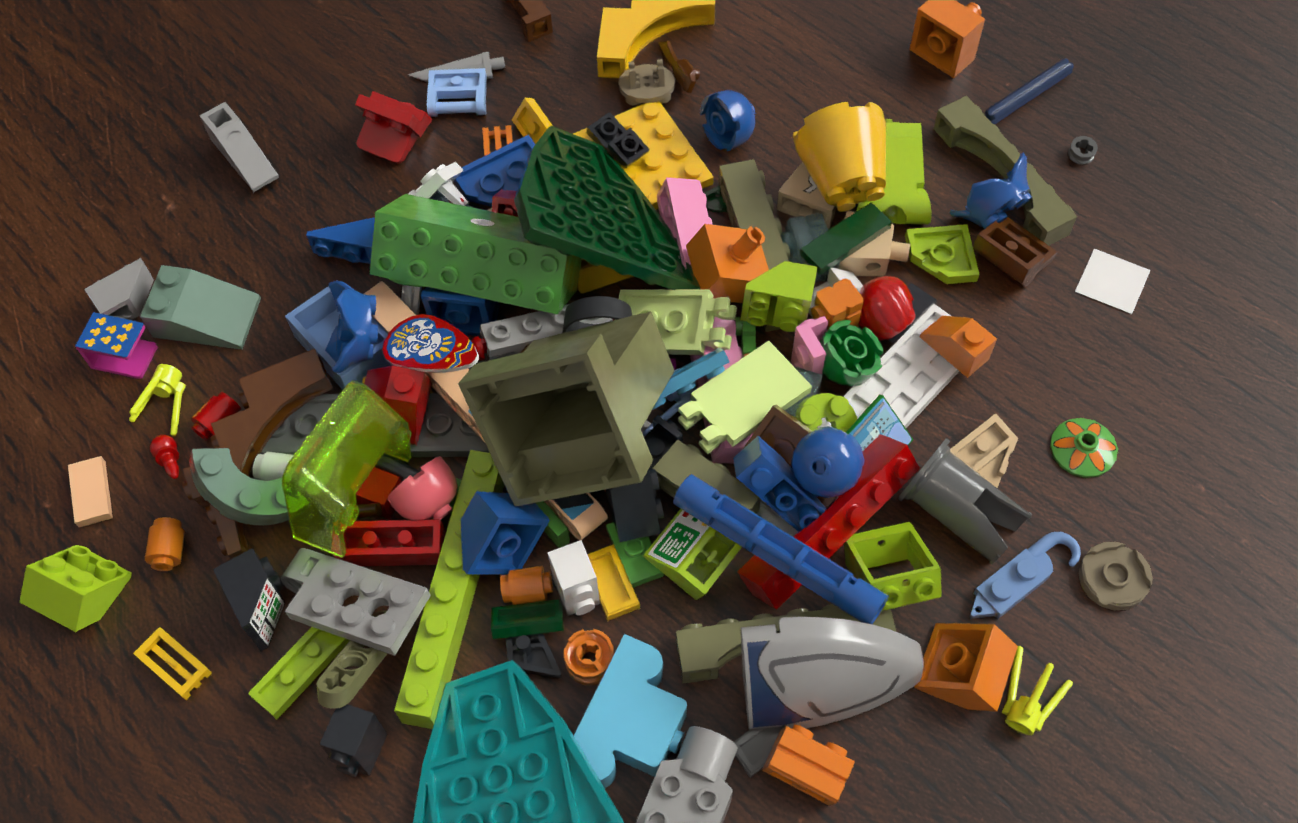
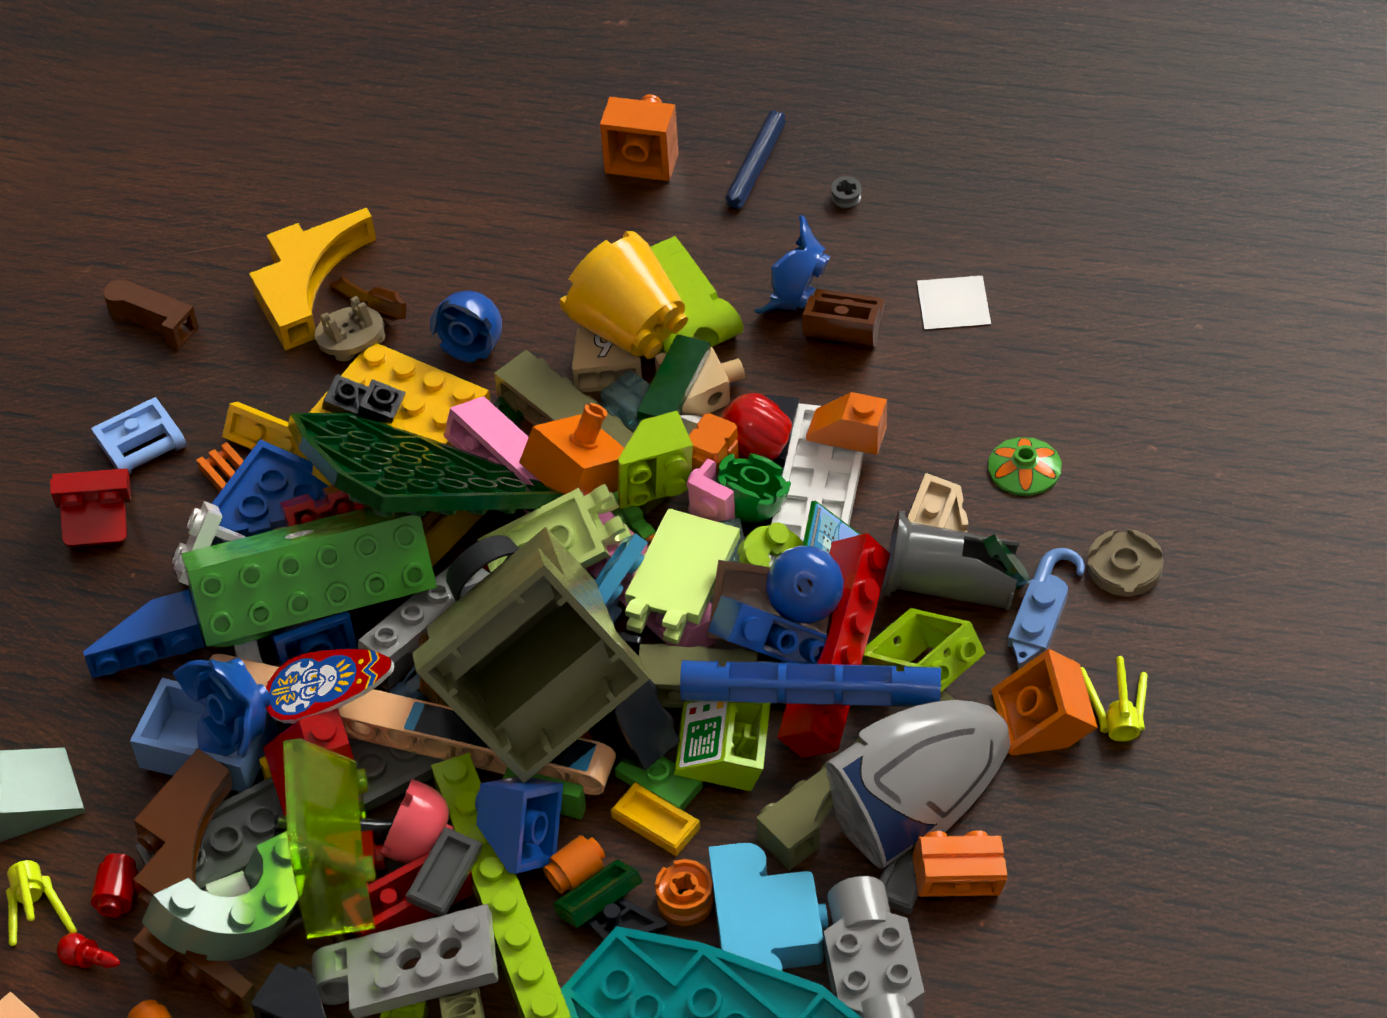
camera: 30 degrees left, 10 degrees down
(417, 543) = (444, 872): none -> dark grey tile
(474, 62) = (139, 394): light grey bar -> none
(574, 578) = (624, 824): white brick -> none
(944, 252) = (776, 352): lime plate -> none
(967, 127) = (722, 222): olive arch -> none
(1015, 531) = (1007, 560): none -> dark green tile

